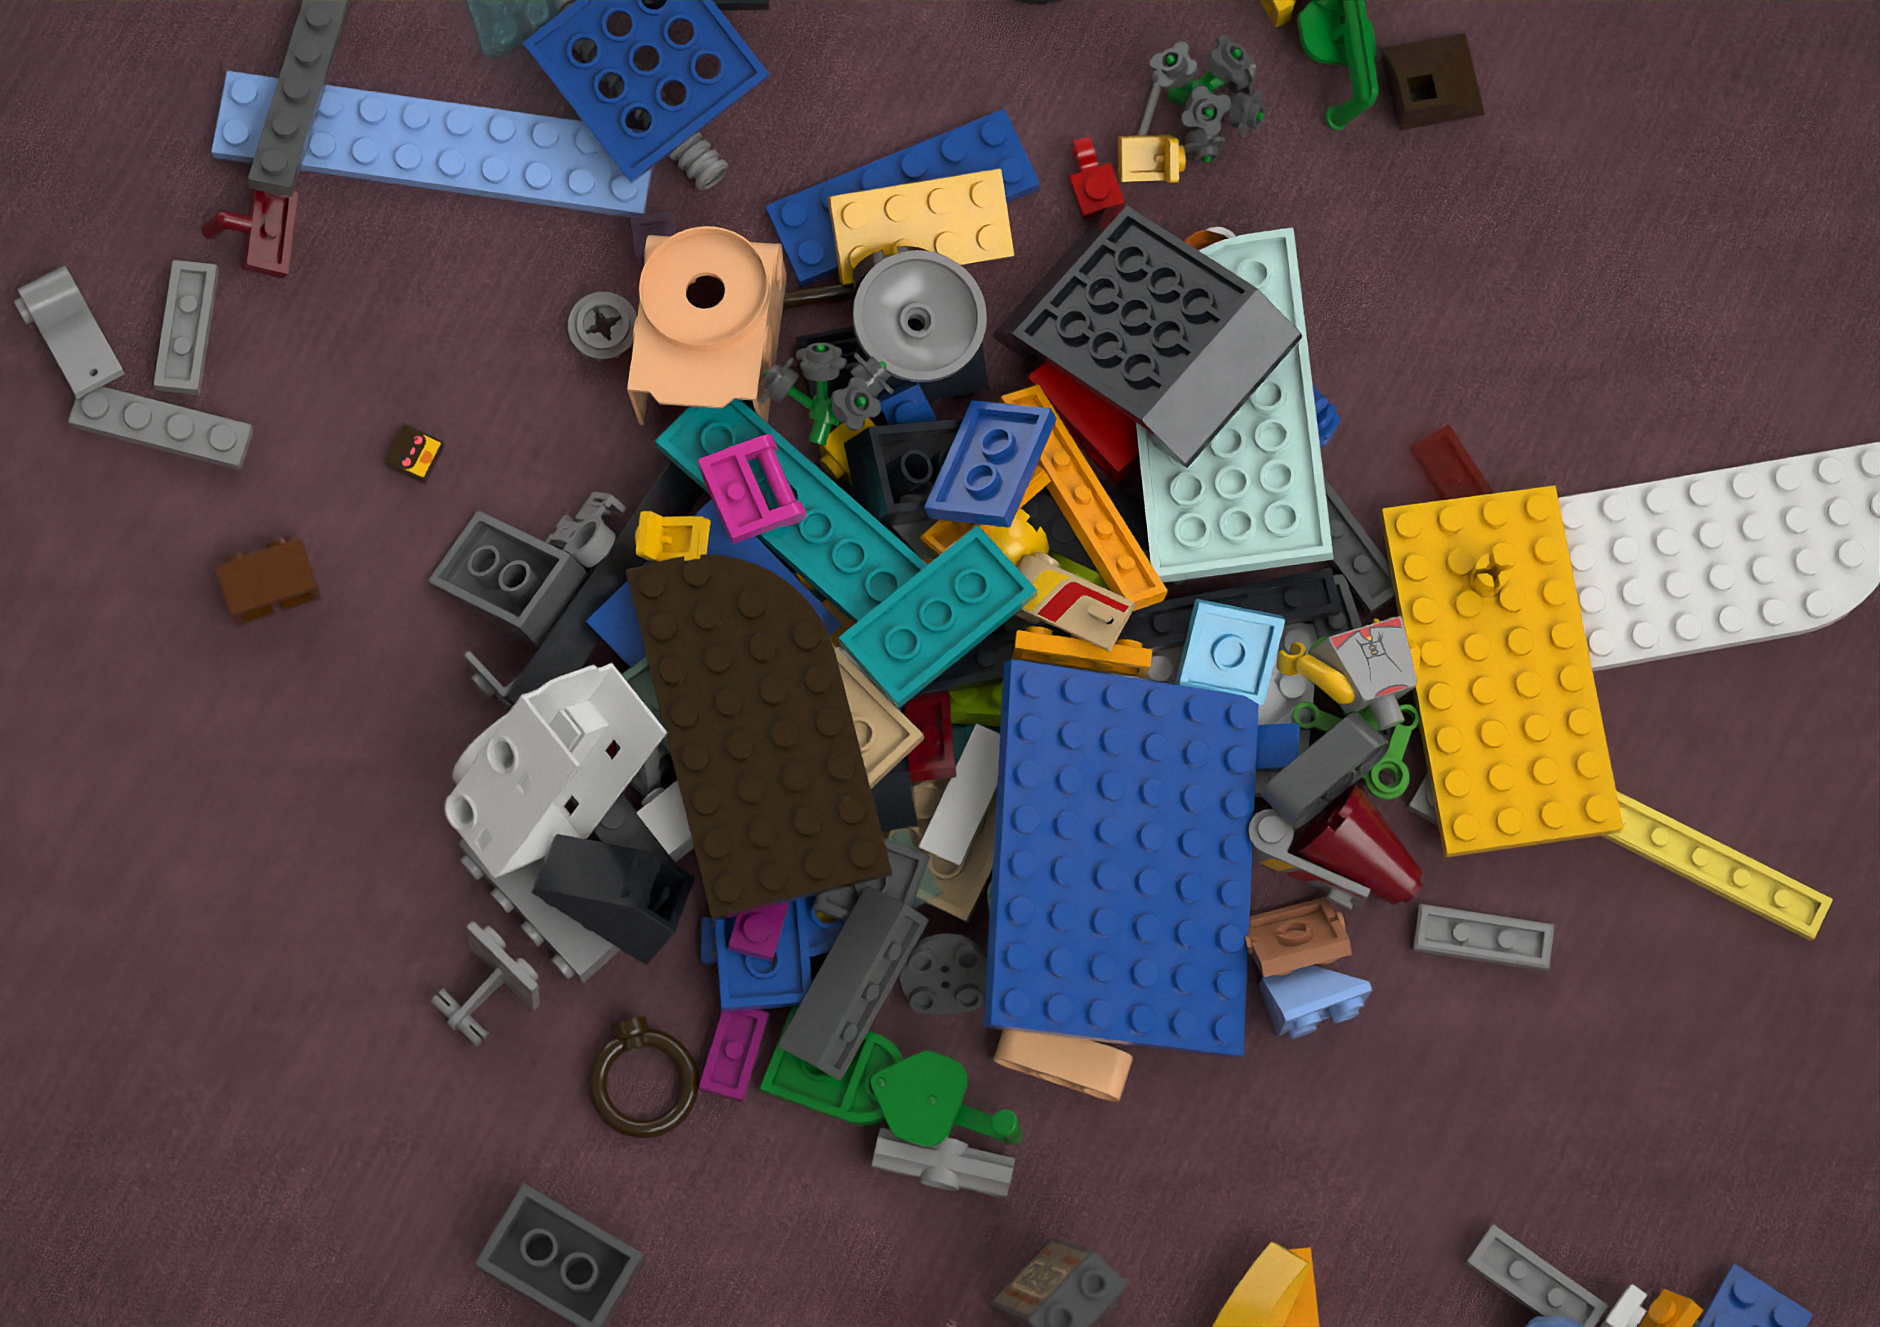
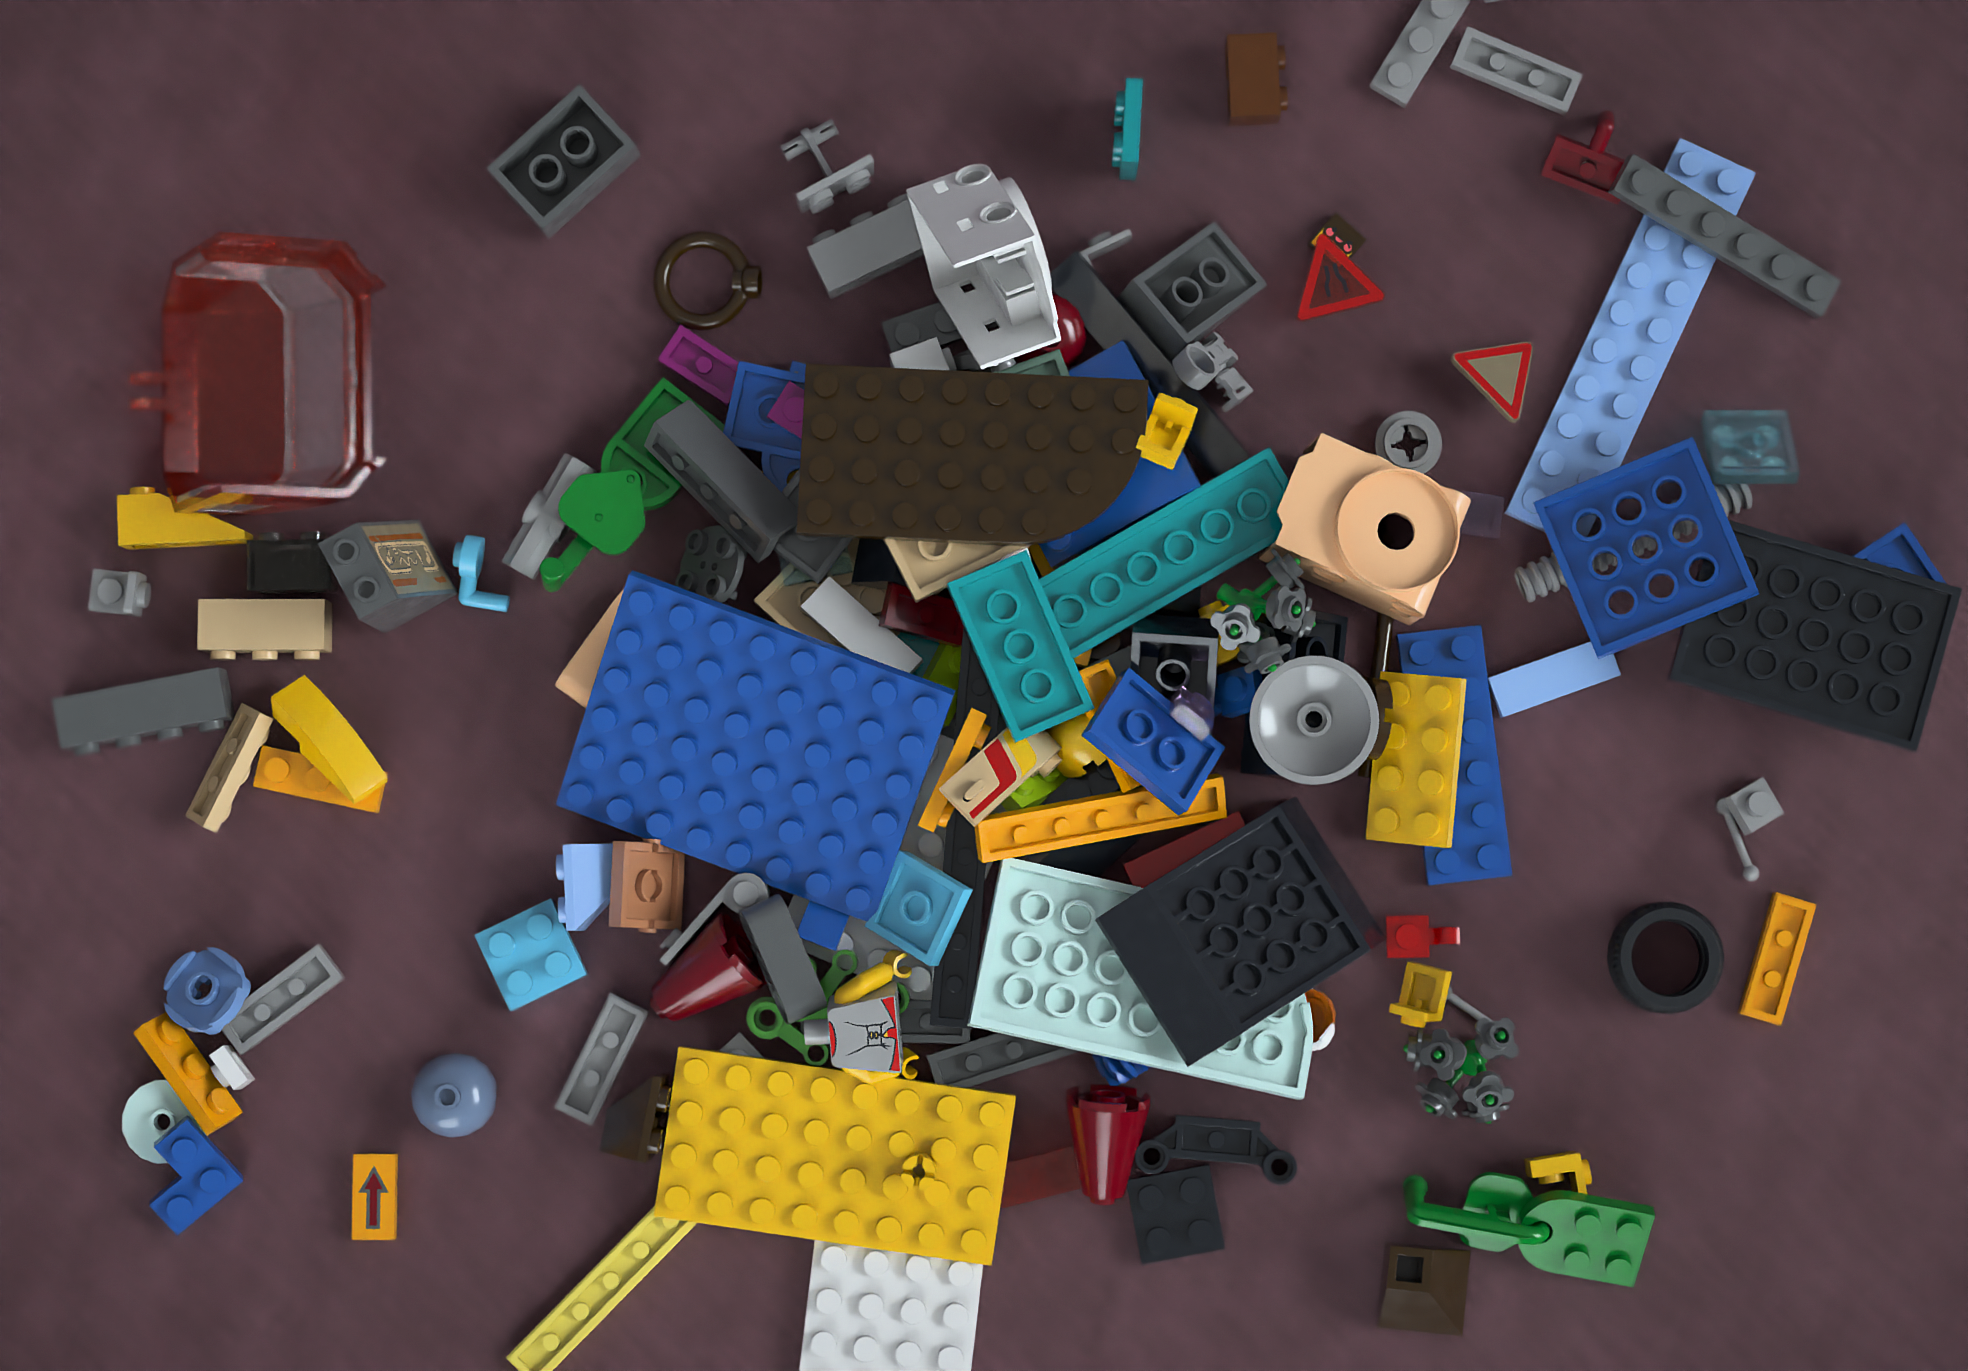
camera: 115 degrees right, 10 degrees up
(359, 682) = (1128, 115): none -> teal plate
(460, 440) = (1334, 284): none -> piece
(507, 256) = (1498, 374): none -> piece
(615, 892) = (868, 294): black slope -> none
(738, 494) = (1192, 502): dark pink plate -> none
(797, 128) = (1550, 678): none -> light blue tile
(949, 434) = (1192, 712): none -> clear purple plate
(1014, 1232) = (469, 558): none -> medium azure plate
(1358, 311) = (1216, 1141): none -> black plate
(1390, 413) = (1105, 1137): none -> dark red cone
(1402, 1041) = (531, 955): none -> medium azure plate
(1442, 332) = (1175, 1214): none -> black plate
(1534, 875) = (634, 1121): none -> dark brown slope
(1571, 1075) = (454, 1095): none -> sand blue cylinder
(1701, 1124) = (374, 1196): none -> light orange tile

